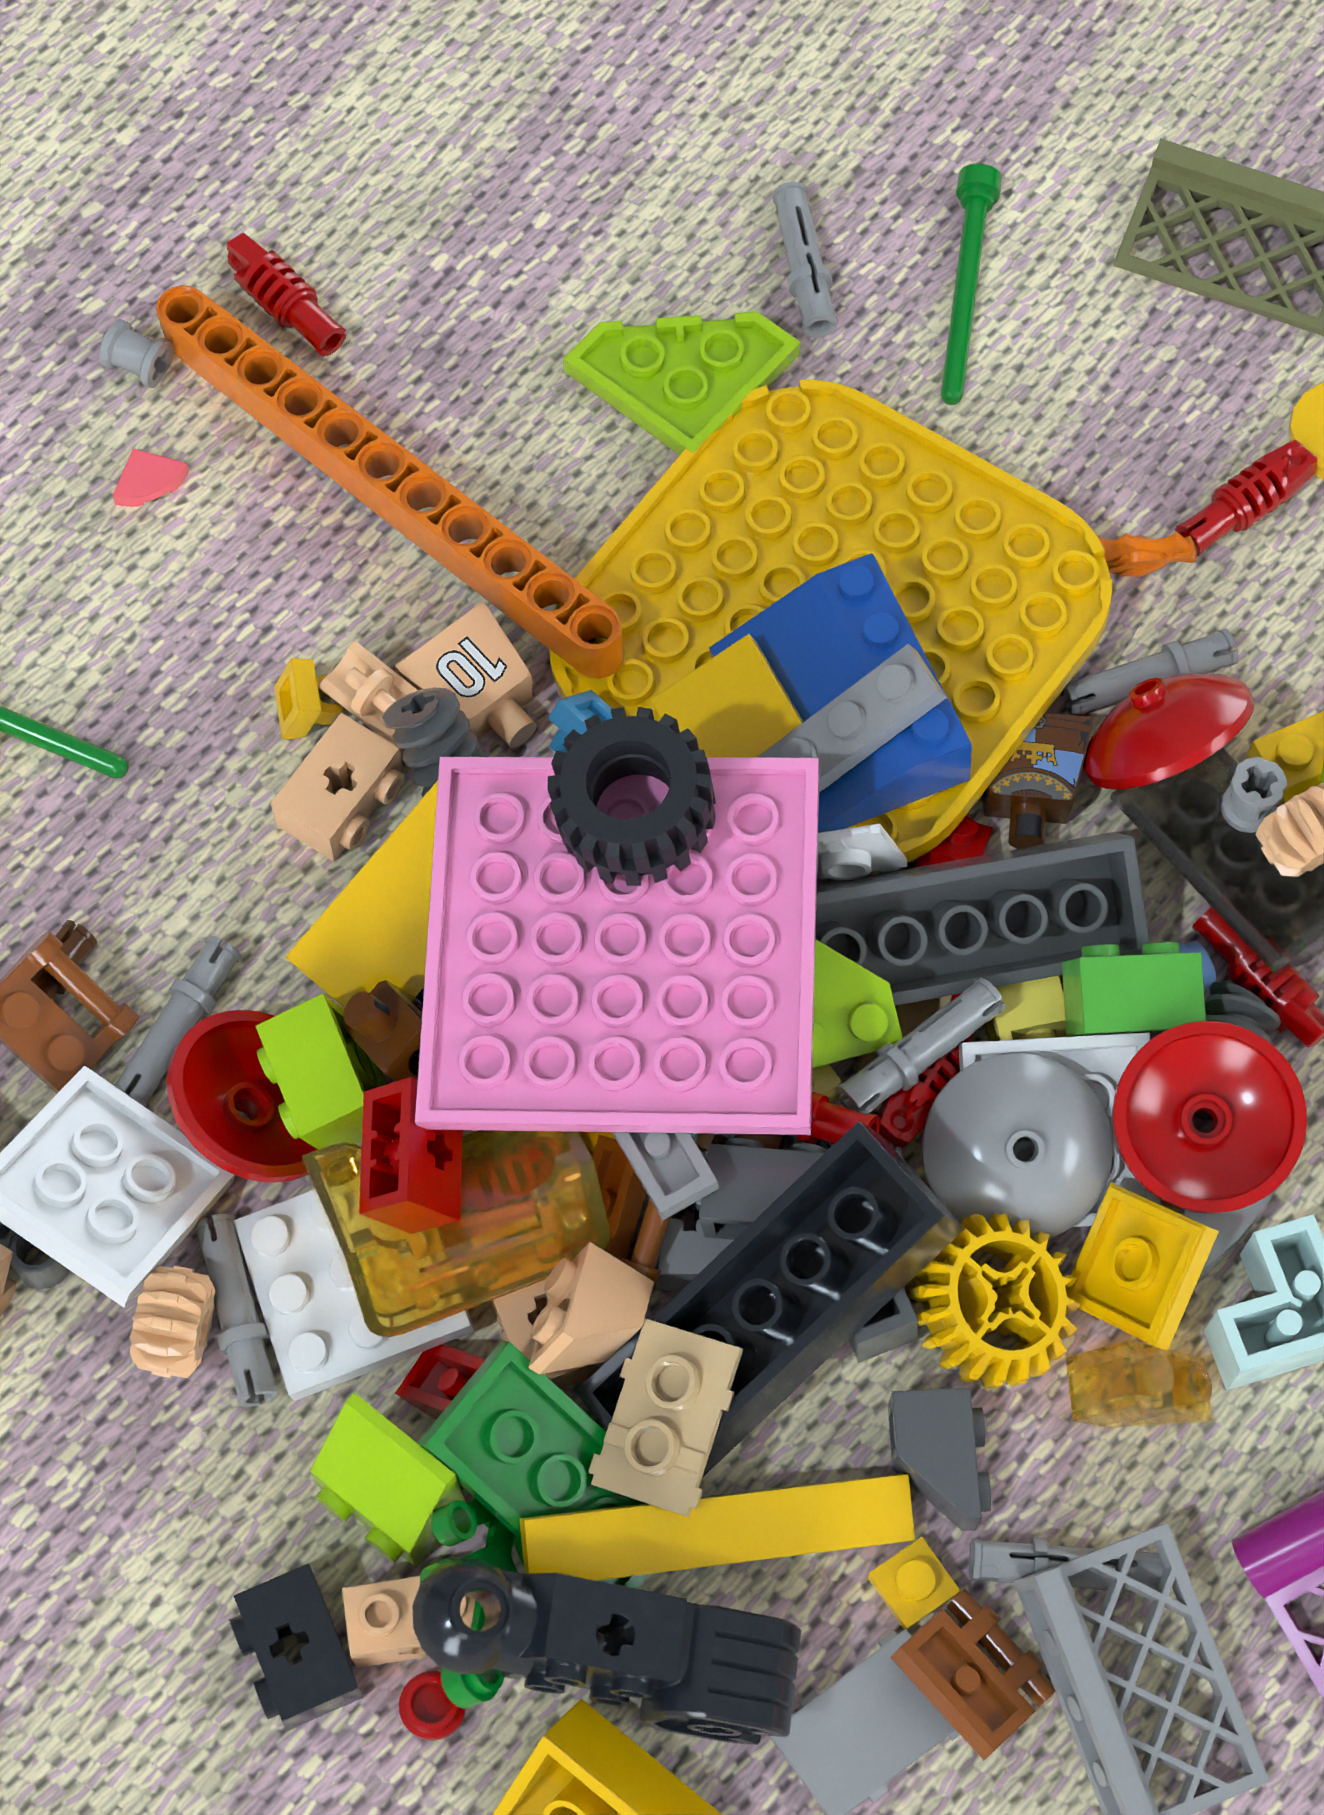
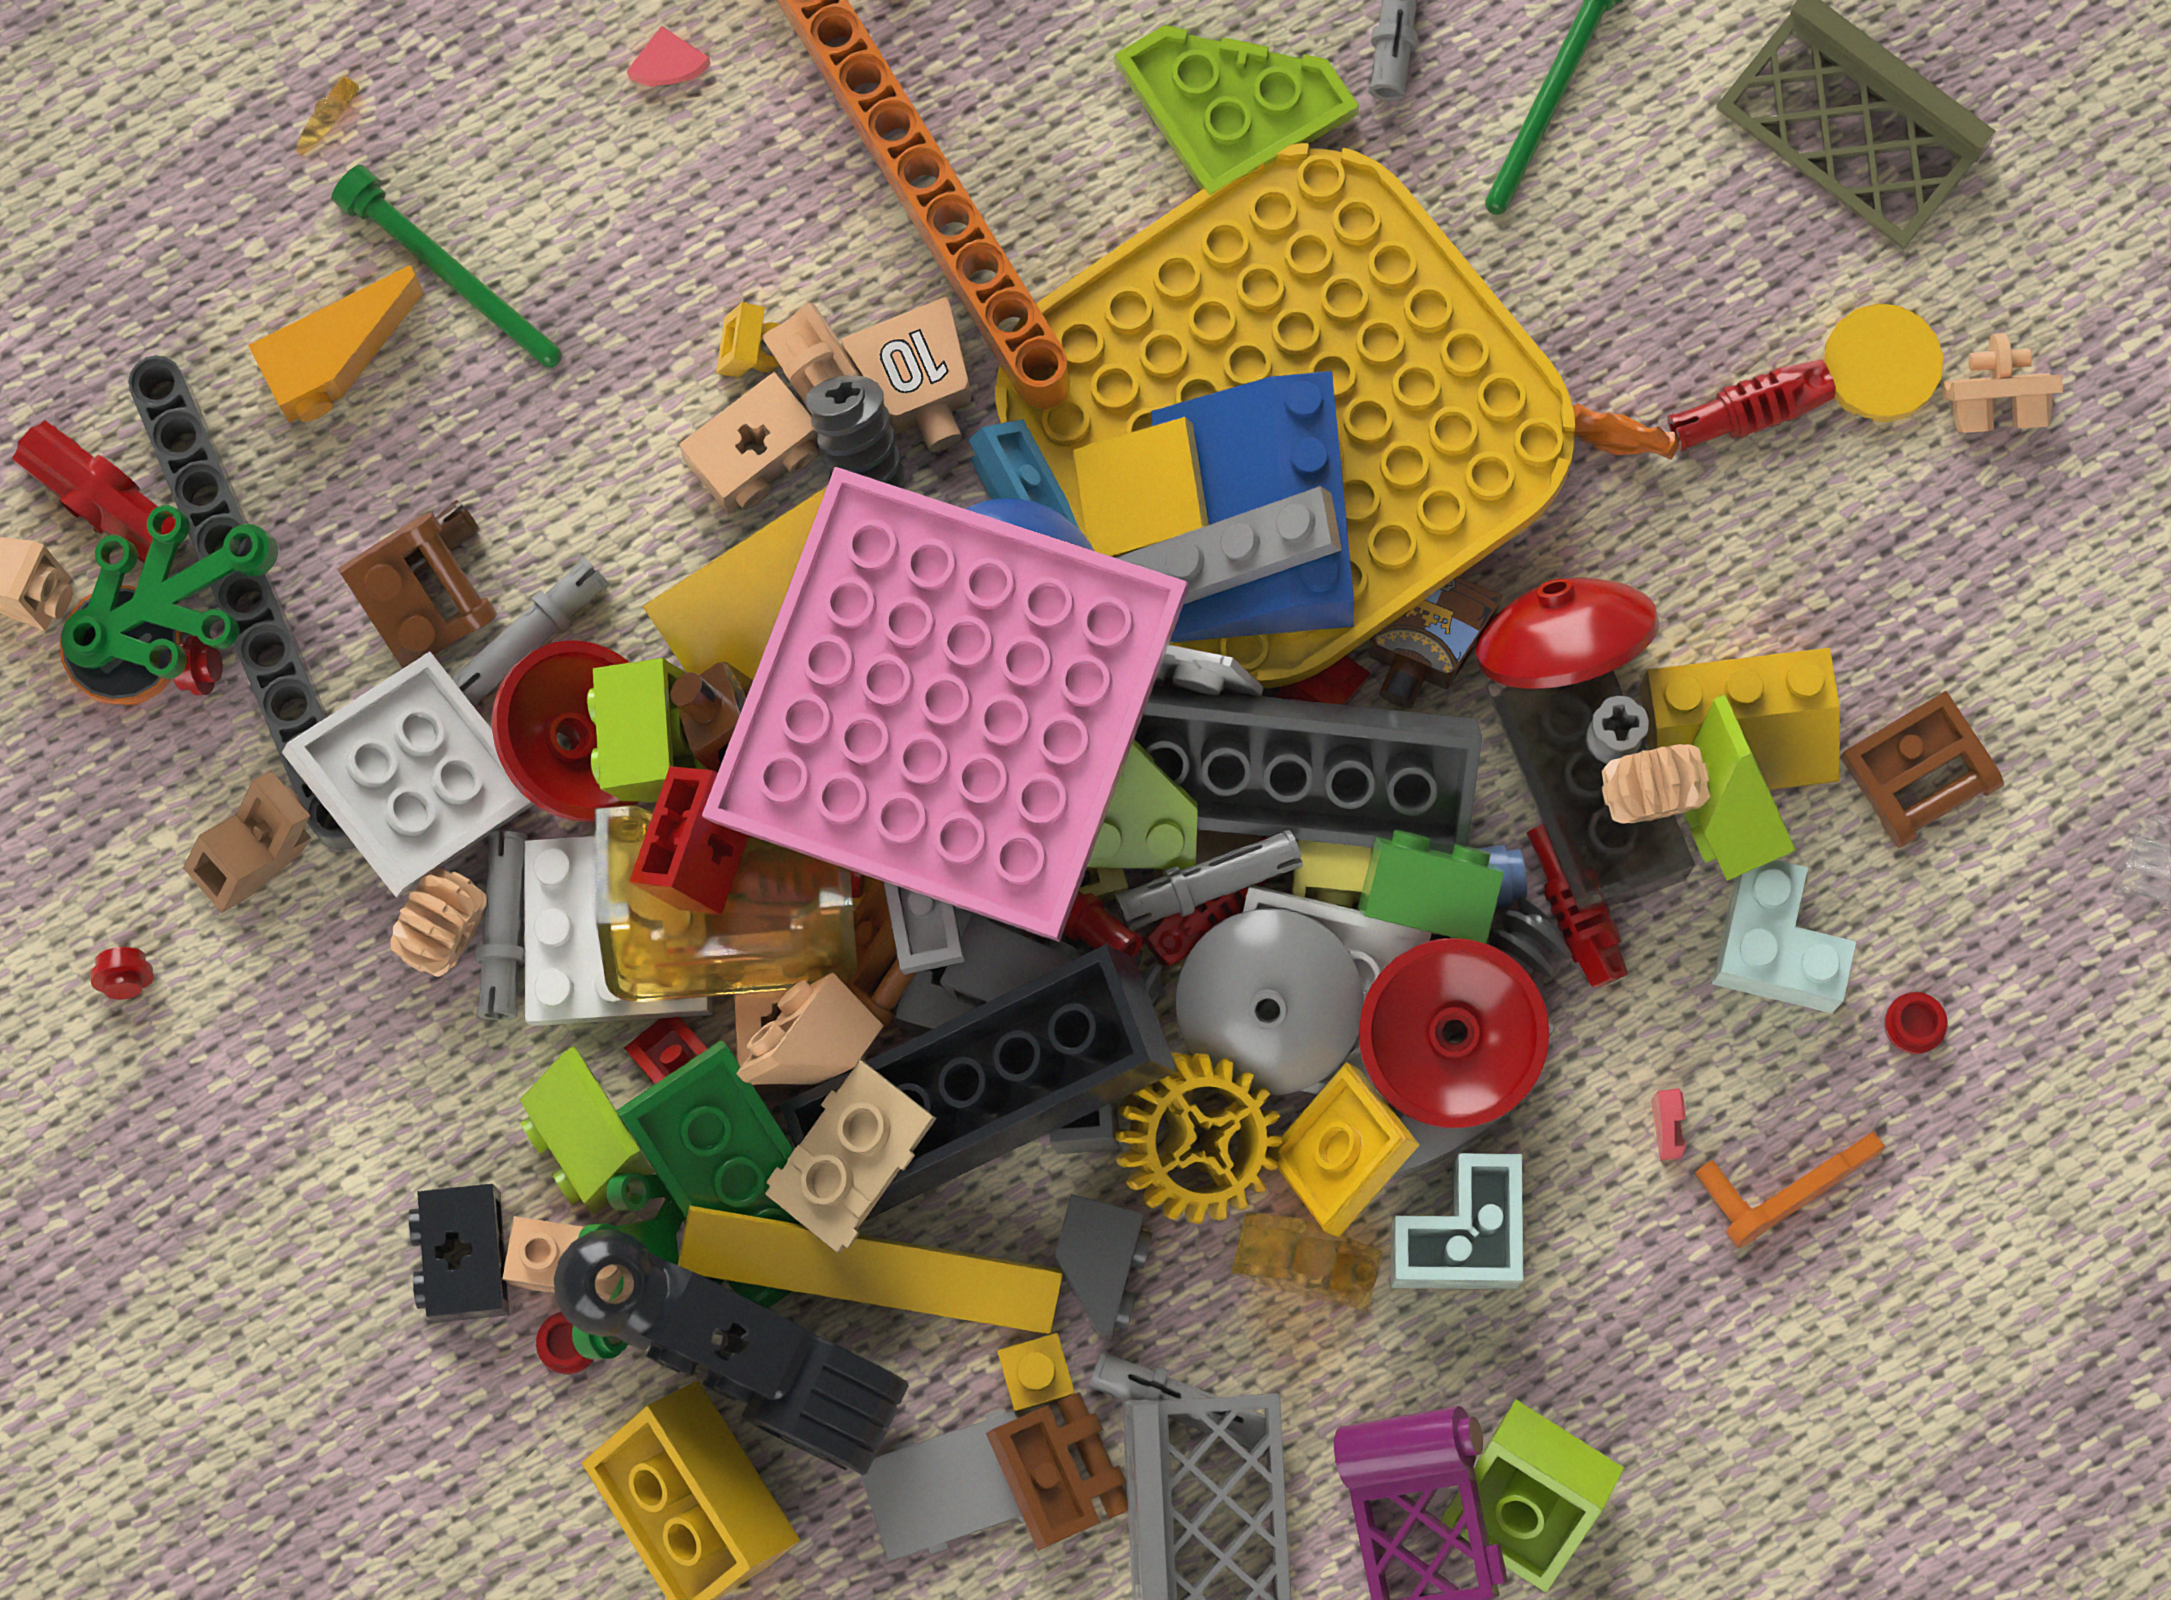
camera: 20 degrees right, 10 degrees up
(623, 749) = (963, 530): black tyre -> none
(1174, 659) = (1597, 560): light grey pin -> none

